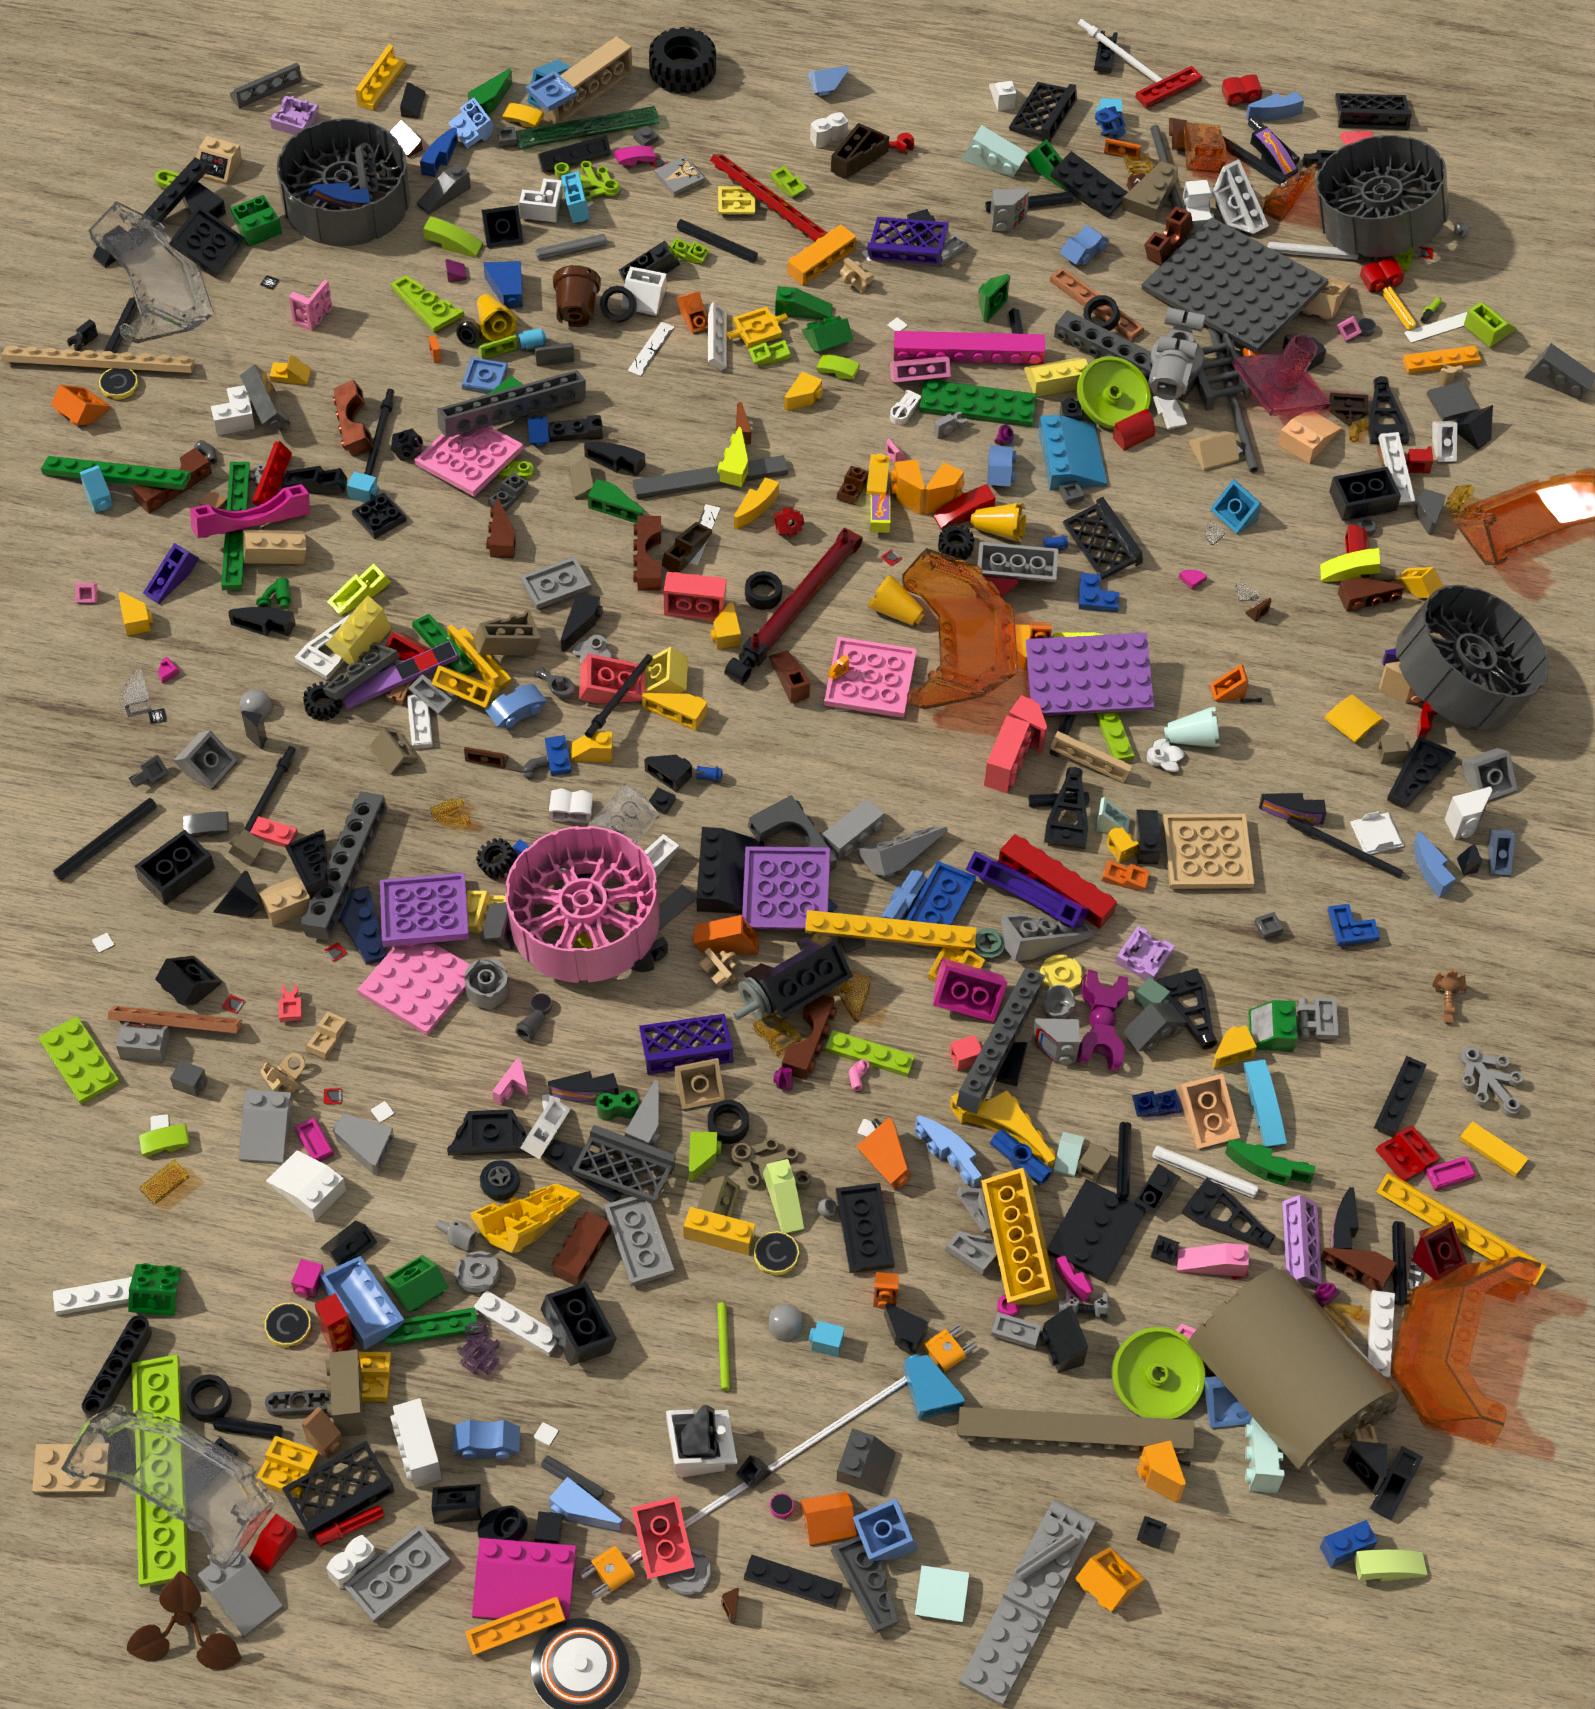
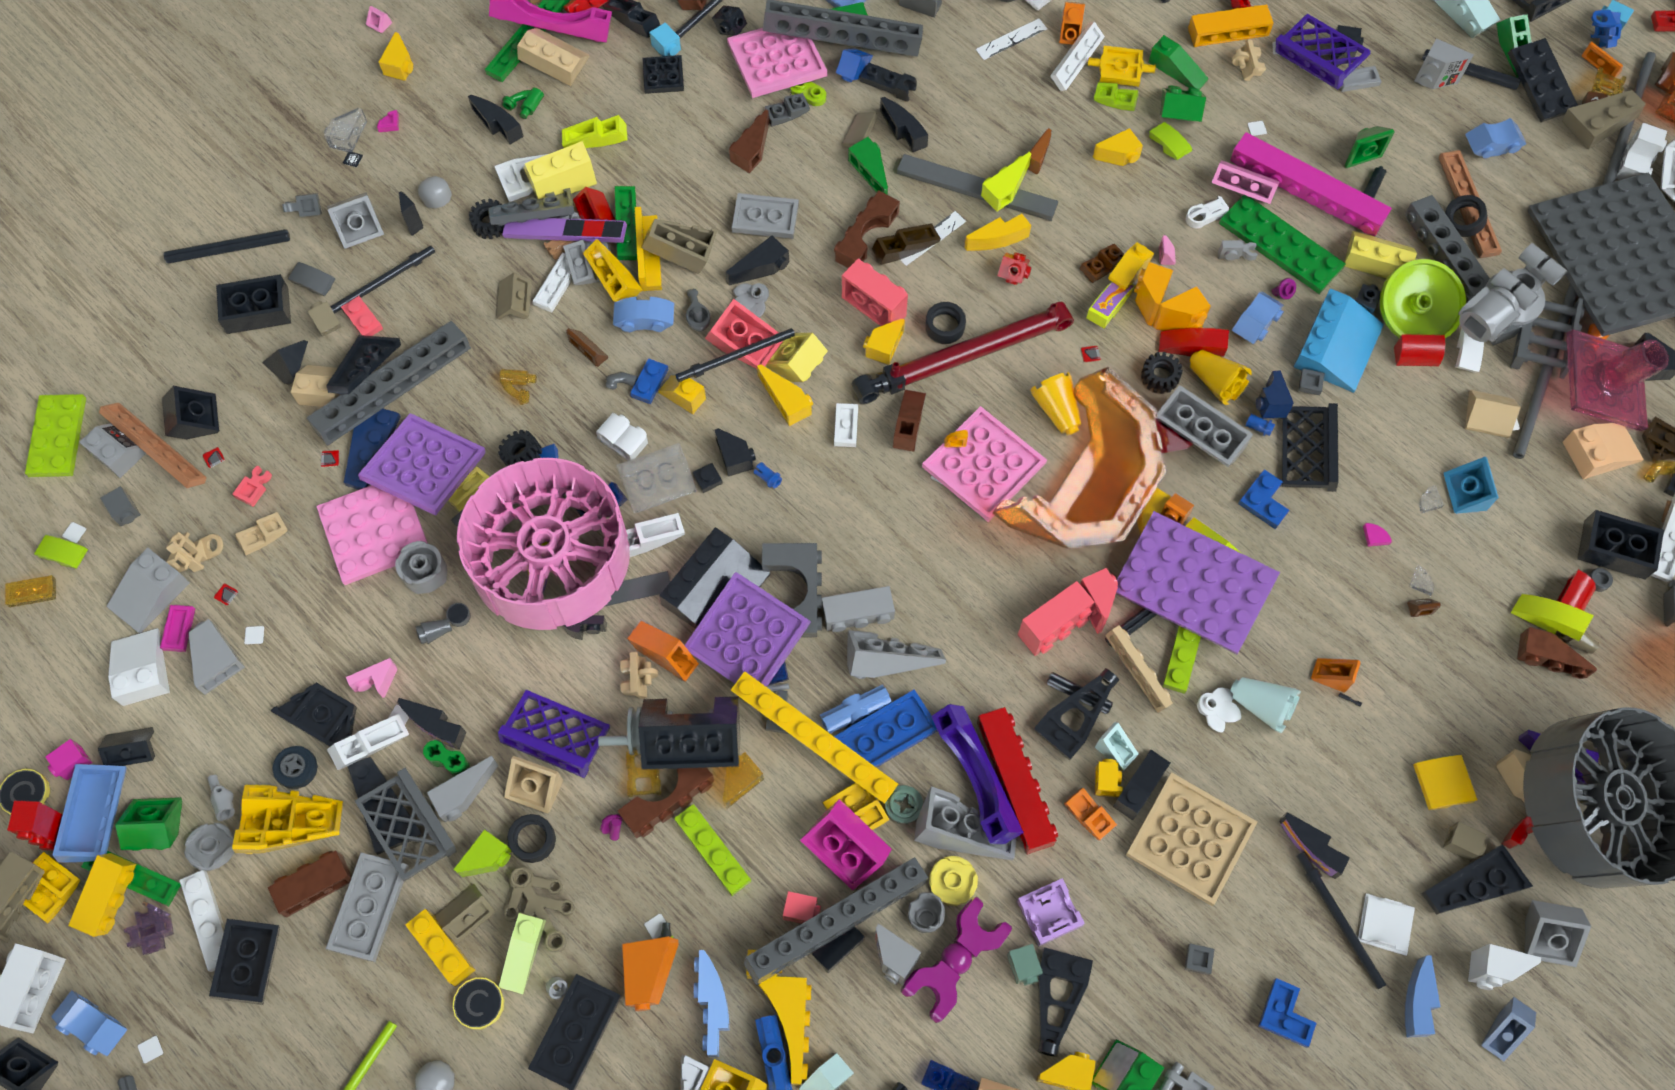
camera: 35 degrees right, 10 degrees up
(103, 942) = (157, 339): white sticker -> none
(171, 572) = (455, 36): dark purple slope -> none
(424, 1346) = (102, 895): none -> yellow brick
(742, 705) = (846, 425): none -> white plate
(857, 1072) = (685, 862): bright pink arm -> none
(1055, 517) = (1275, 398): none -> dark blue arch
(1152, 1024) = (1002, 1000): dark grey brick -> none
(1178, 226) = (1606, 164): copper arch -> none
(1420, 581) = (1619, 673): yellow slope -> none
(1469, 860) = (1467, 1018): black slope -> none

